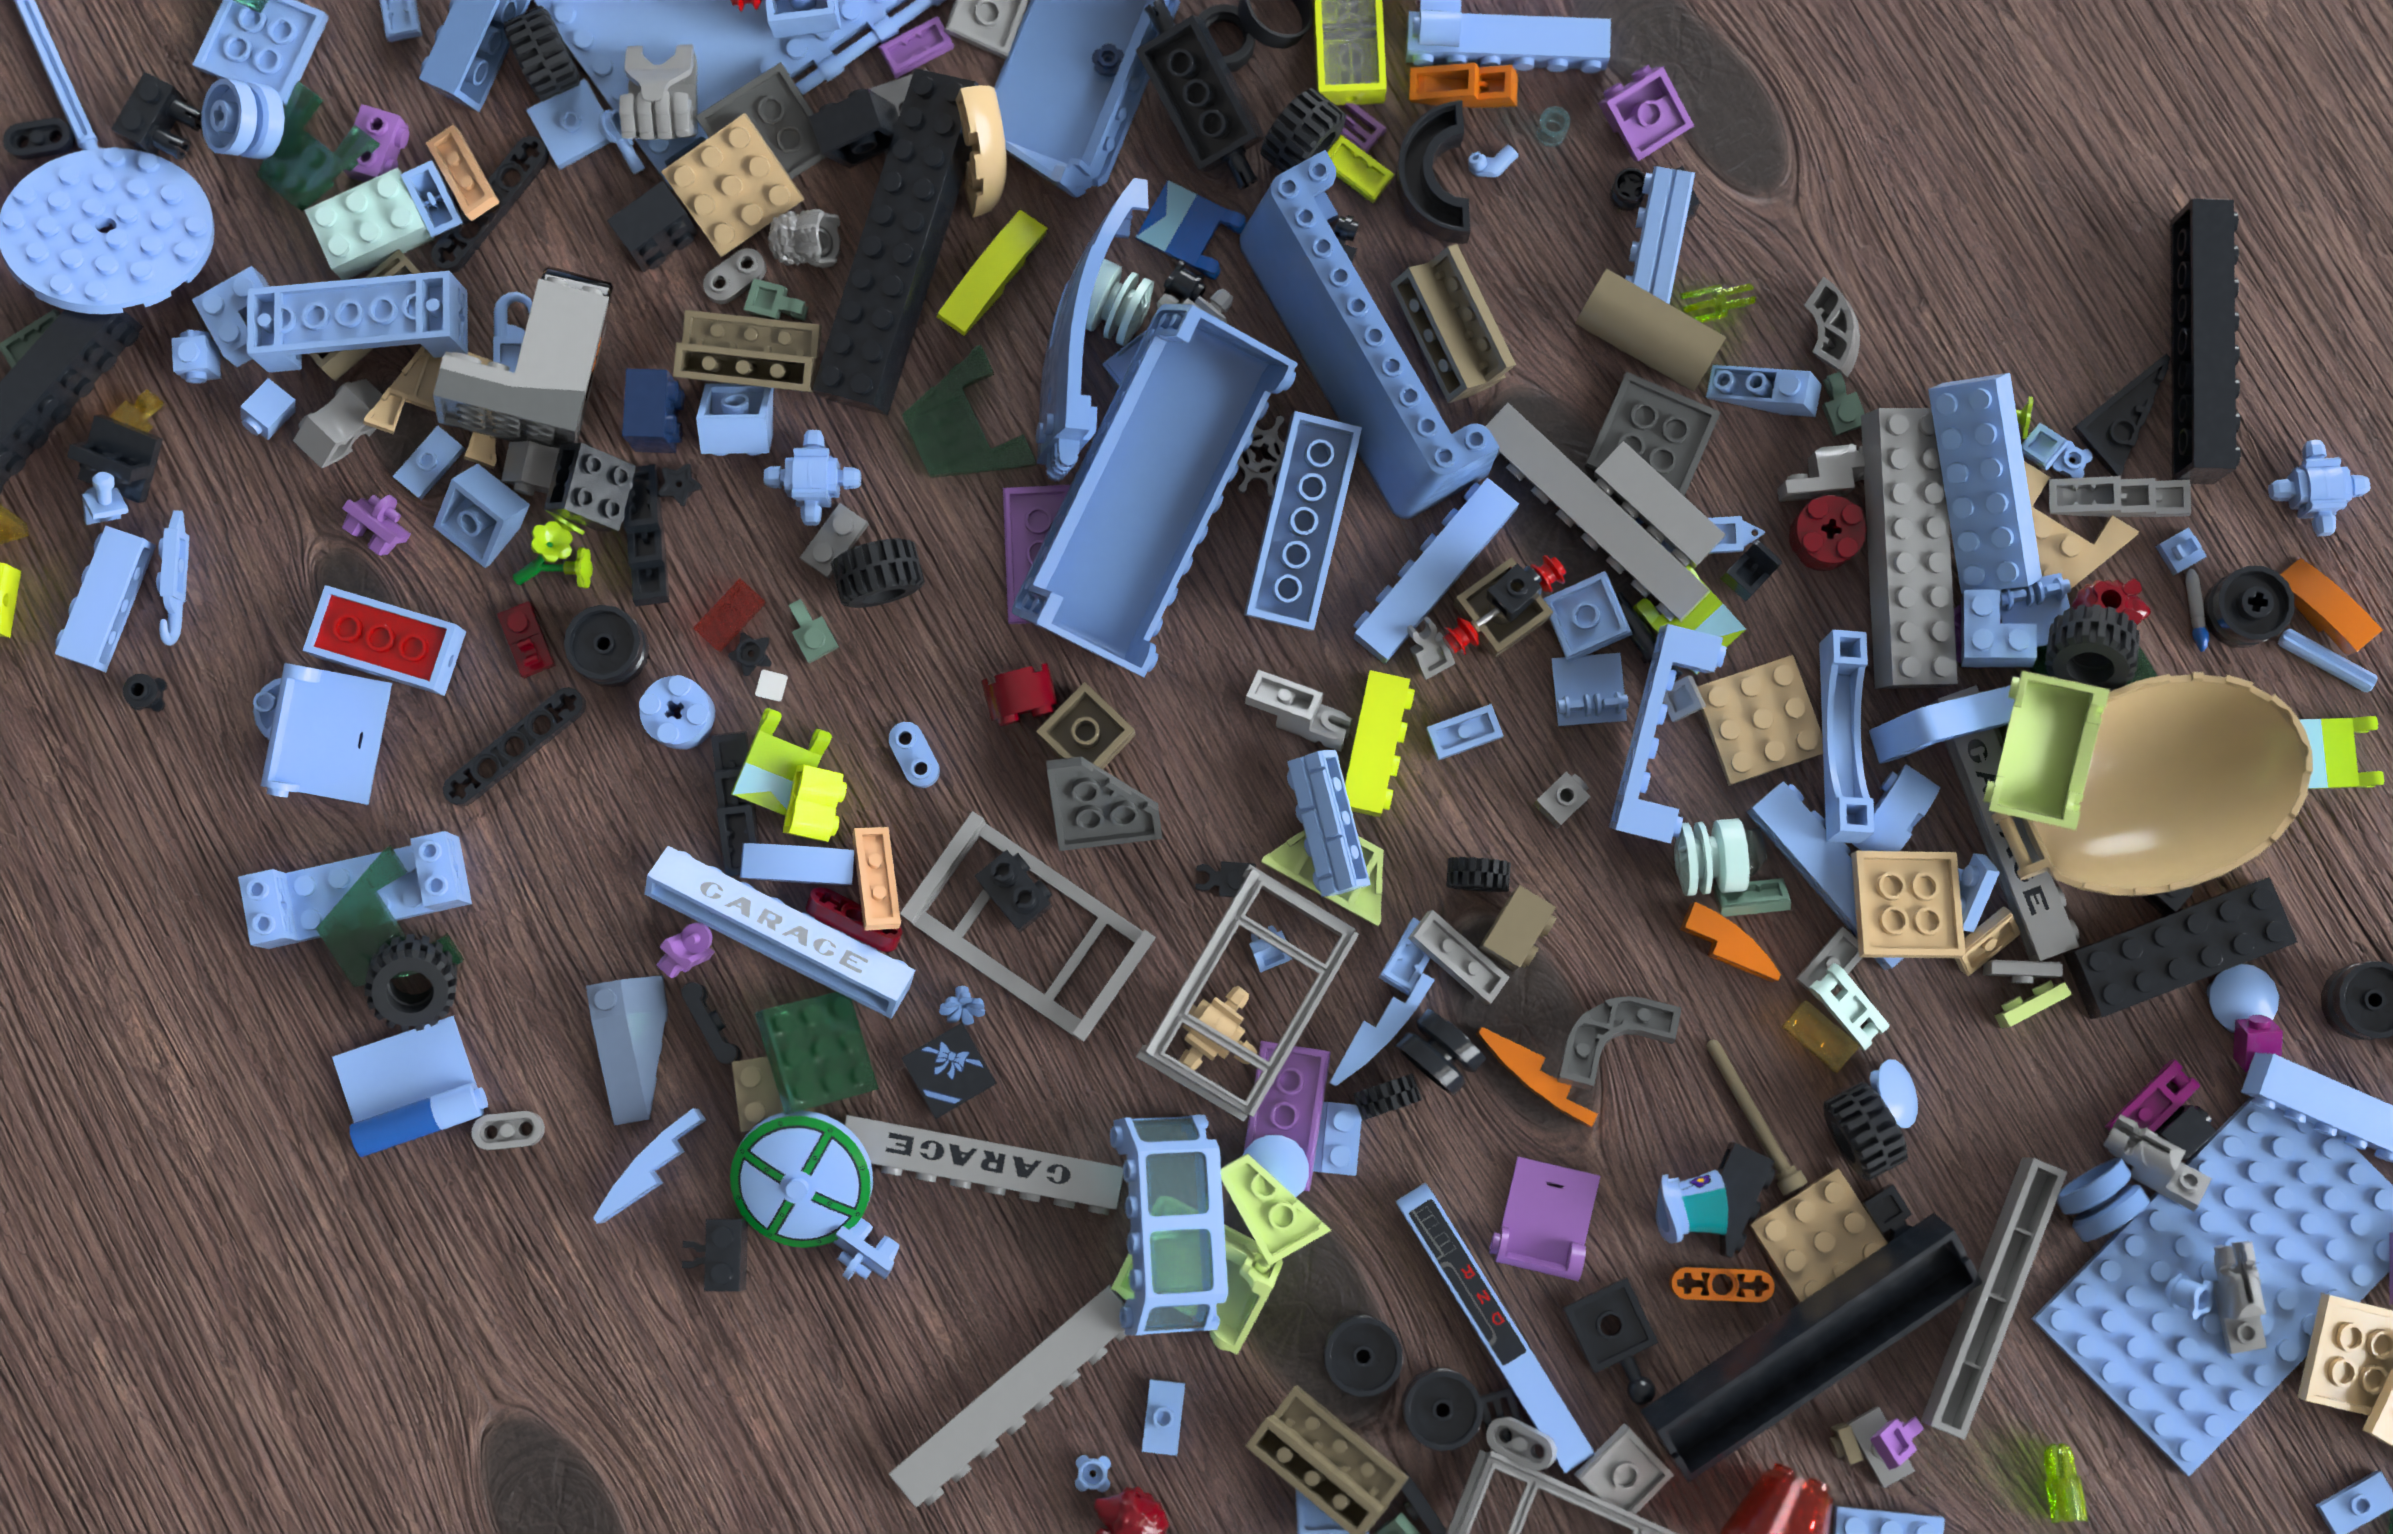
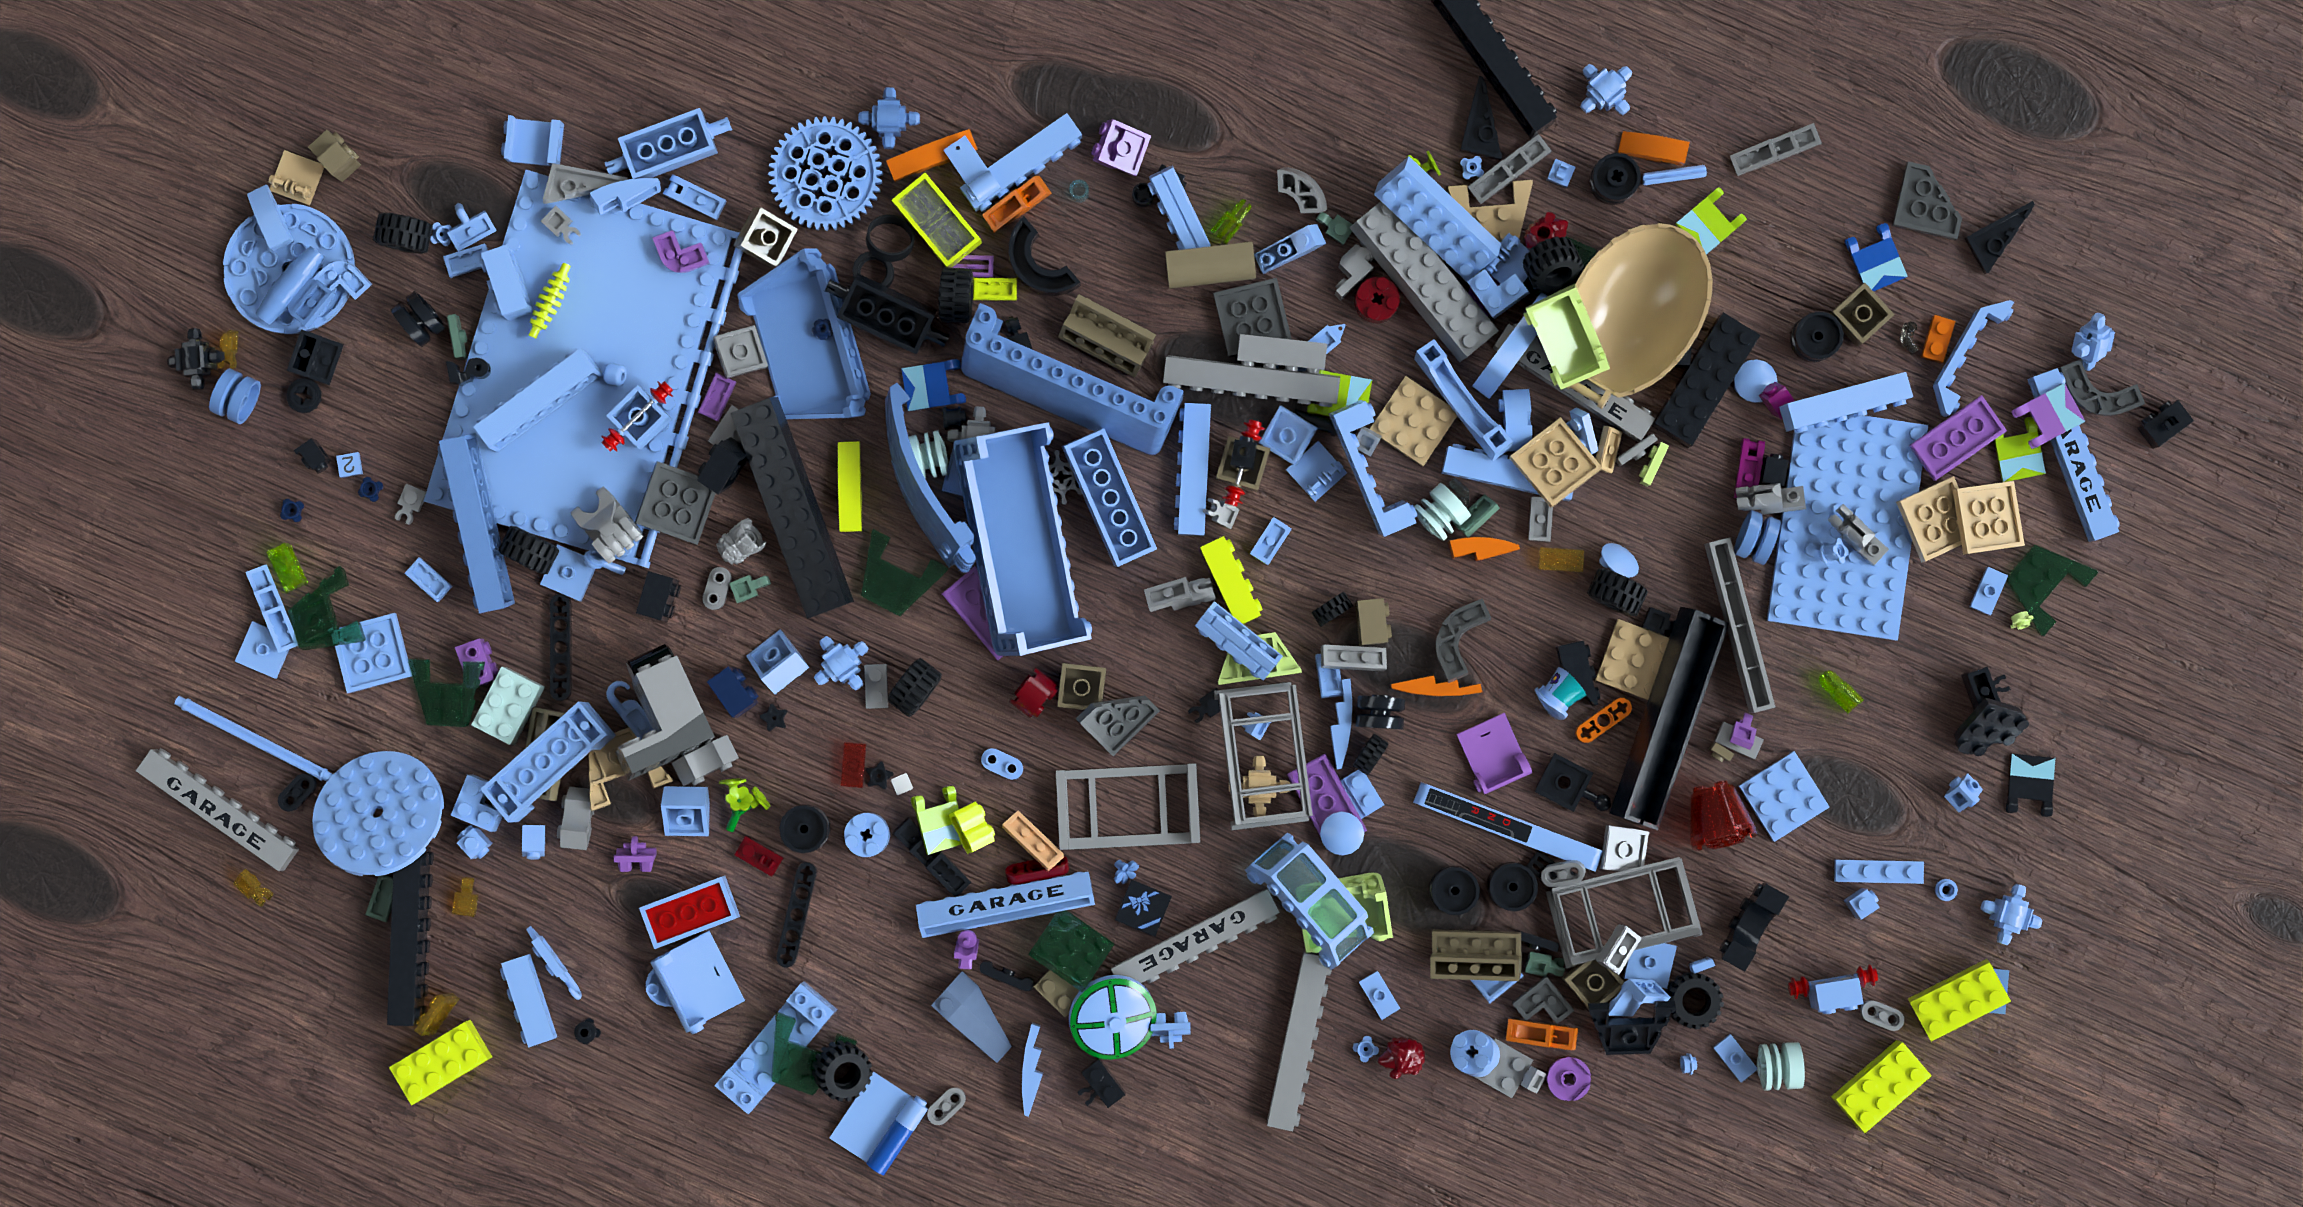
camera: 40 degrees left, 5 degrees up
(103, 501) = (488, 952): light blue piece -> none
(120, 451) = (476, 924): black bracket -> none
(151, 115) = (347, 737): black brick -> none
(242, 119) = (400, 702): light blue wheel -> none
(429, 462) = (636, 804): light blue plate -> none
(432, 198) = (532, 668): light blue slope -> none
(462, 172) = (535, 642): light nougat plate -> none
(590, 487) = (734, 755): black brick -> none
(646, 539) = (777, 757): black slope -> none
(732, 185) = (681, 543): tan plate -> none
(748, 351) = (758, 623): dark tan brick -> none
(797, 864) = (987, 864): light blue slope -> none
(813, 635) = (903, 743): sand green plate -> none
(988, 161) = (795, 422): tan brick -> none
(1014, 890) = (1107, 794): black brick -> none
(1269, 1210) = (1355, 854): yellowish green wing -> none
(1489, 166) = (1063, 234): light blue arm -> none
(1562, 799) = (1345, 537): light grey brick -> none
(1751, 570) = (1352, 348): black bracket -> none
(1788, 1176) = (1597, 642): dark tan piece -> none
(1849, 1006) = (1564, 534): light aqua plate -> none
(2043, 446) = (1452, 171): light blue tile -> none
(2199, 633) = (1581, 188): light grey piece -> none

